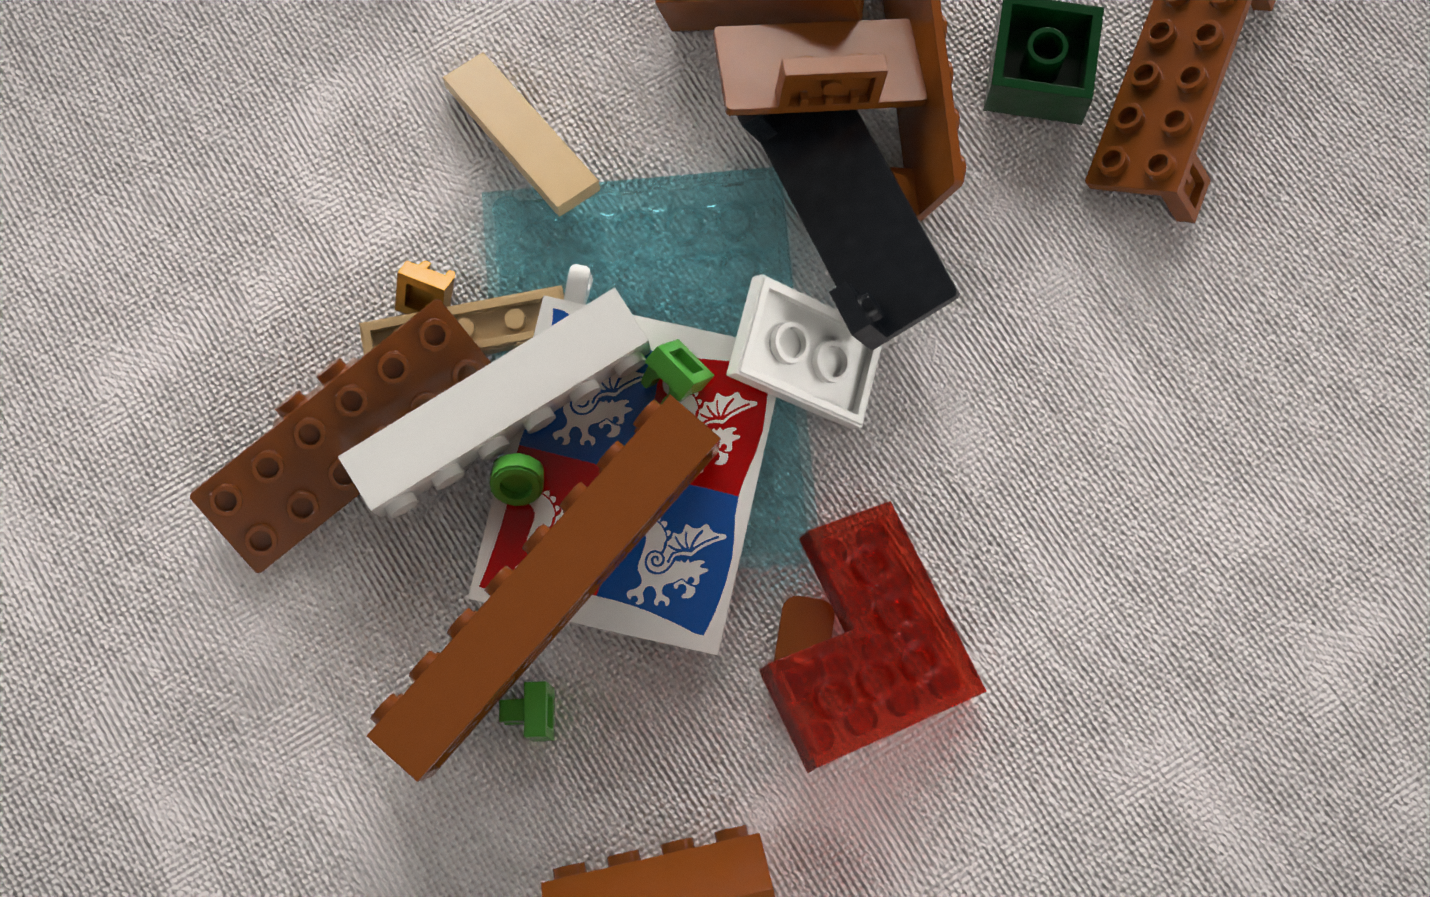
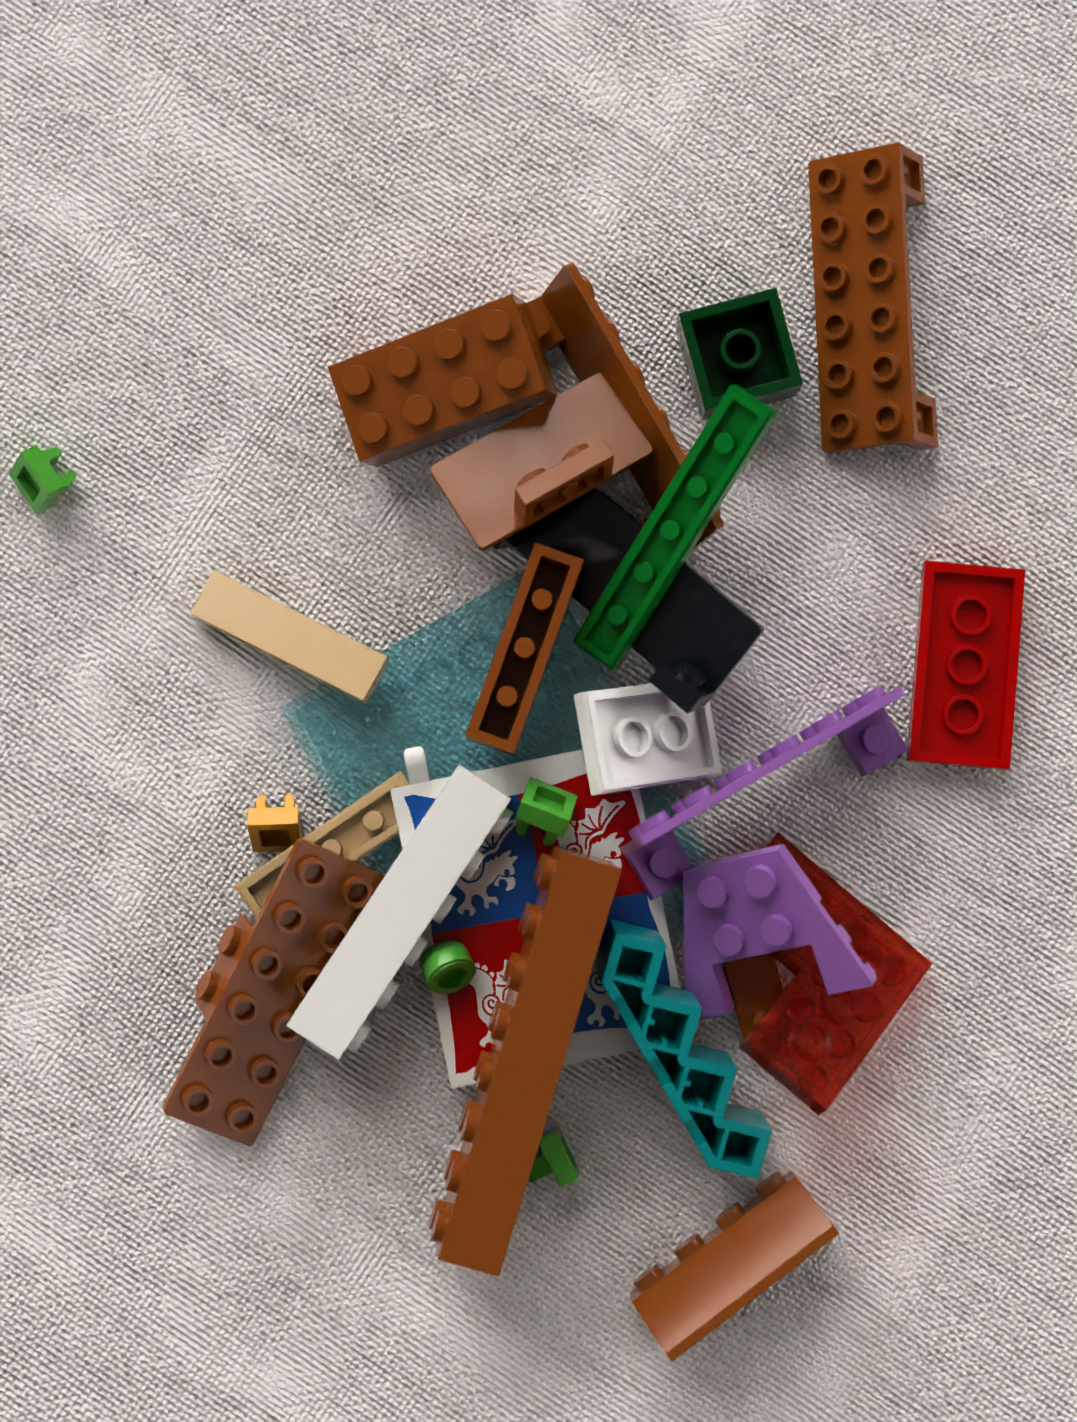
camera: 25 degrees left, 10 degrees up
(699, 685) = (691, 1075): none -> teal brick
(725, 222) = (524, 649): none -> dark orange brick
(830, 544) = (754, 908): none -> medium lavender wing
(917, 166) = (675, 526): none -> green tile
(1010, 426) = (864, 732): none -> medium lavender bracket
(1139, 427) = (966, 665): none -> red plate

